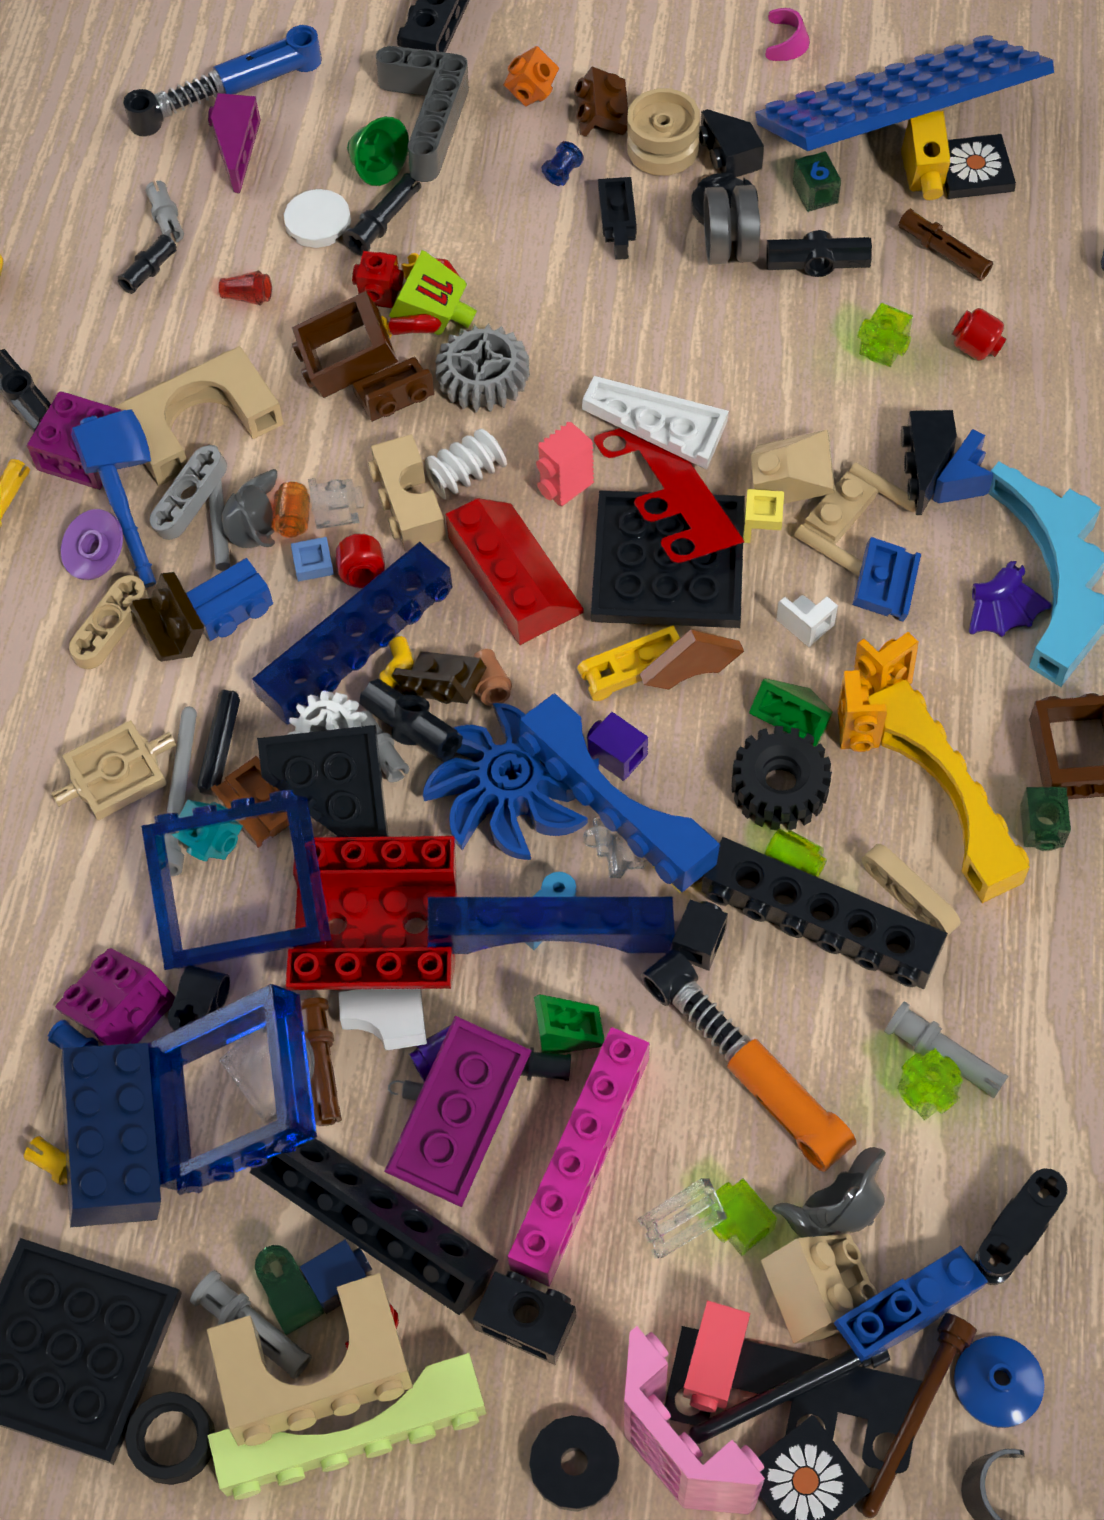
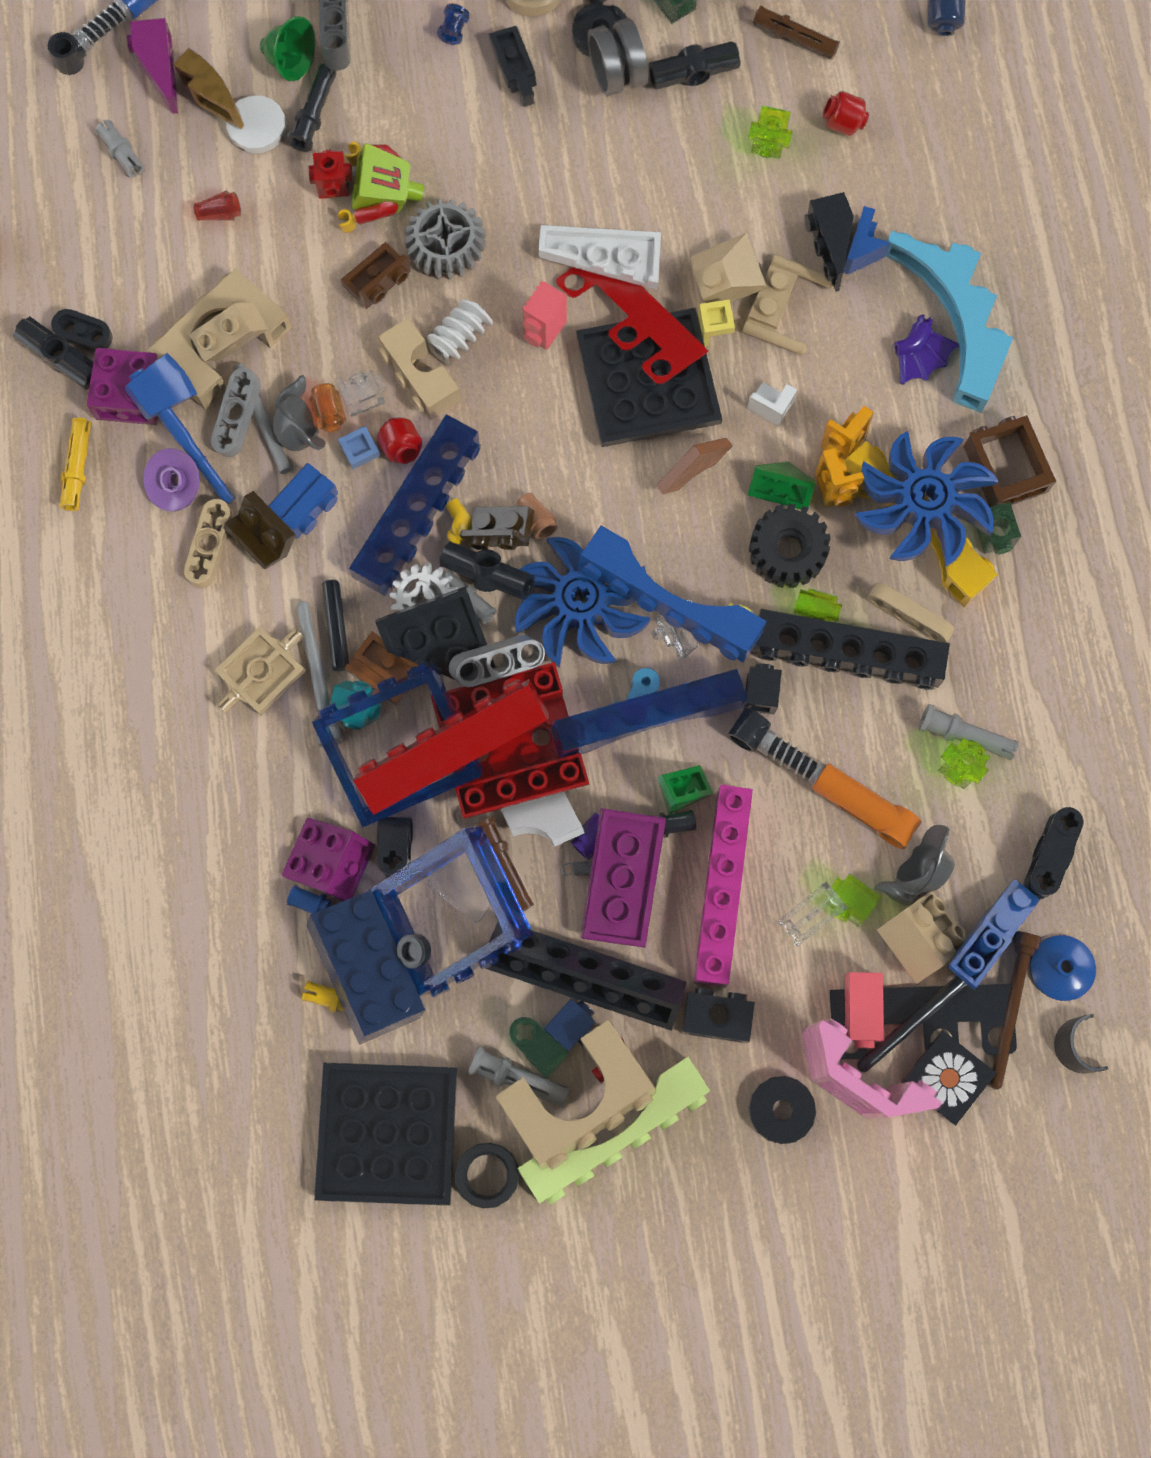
camera: 20 degrees left, 15 degrees up
(59, 376) = (84, 329): none -> black plate
(147, 264) = (123, 203): black pin -> none
(171, 1125) = (414, 950): none -> black tile
(207, 404) = (228, 331): none -> tan brick
(276, 170) = (207, 87): none -> pearl gold slope
(292, 889) = (451, 746): none -> red brick
(332, 324) = (308, 227): reddish brown window -> none
(406, 821) = (511, 663): none -> light grey beam
(511, 568) = (524, 416): red slope -> none
(617, 745) = (655, 550): dark purple brick -> none
(624, 662) = (644, 475): yellow plate -> none
(886, 579) = (826, 354): blue plate -> none
(960, 756) = (923, 514): none -> blue piece

